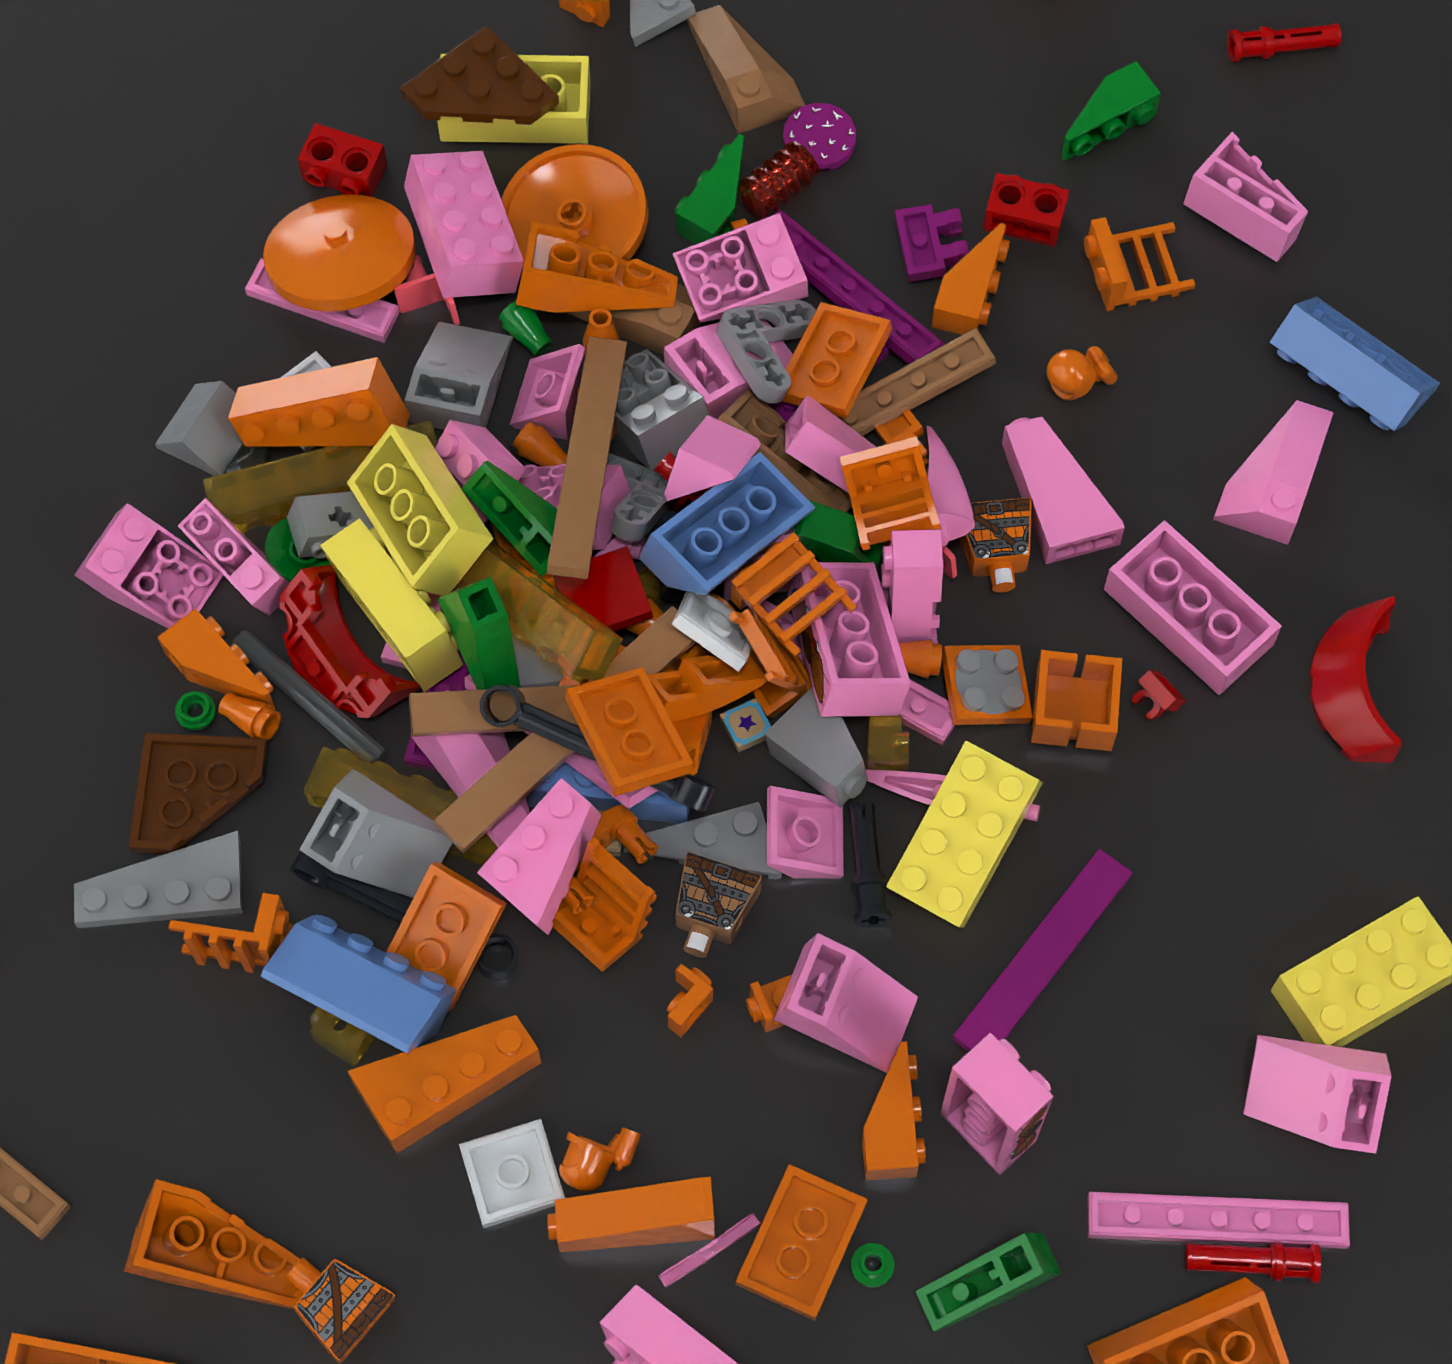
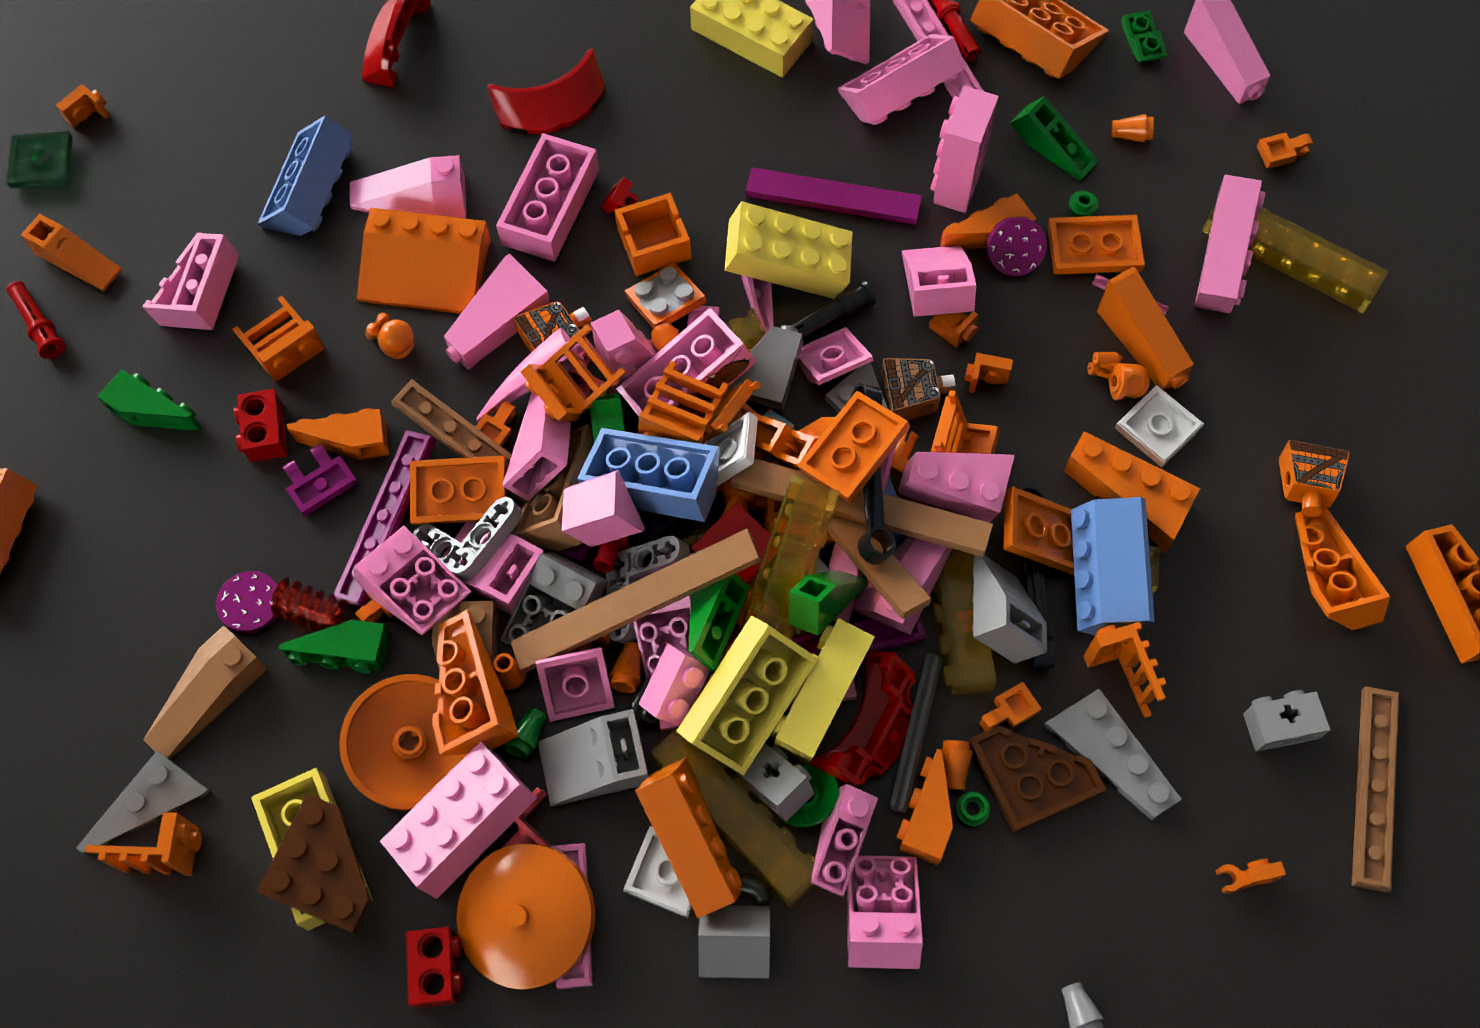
camera: 115 degrees left, 0 degrees up
(78, 1063) = (1270, 731): none -> light grey brick
(273, 806) = (1012, 706): none -> orange plate
(842, 1126) = (1016, 246): none -> magenta tile
(1170, 443) = (422, 260): none -> orange slope
(1183, 1126) = (903, 78): none -> bright pink slope
(1355, 92) = (69, 252): none -> orange slope

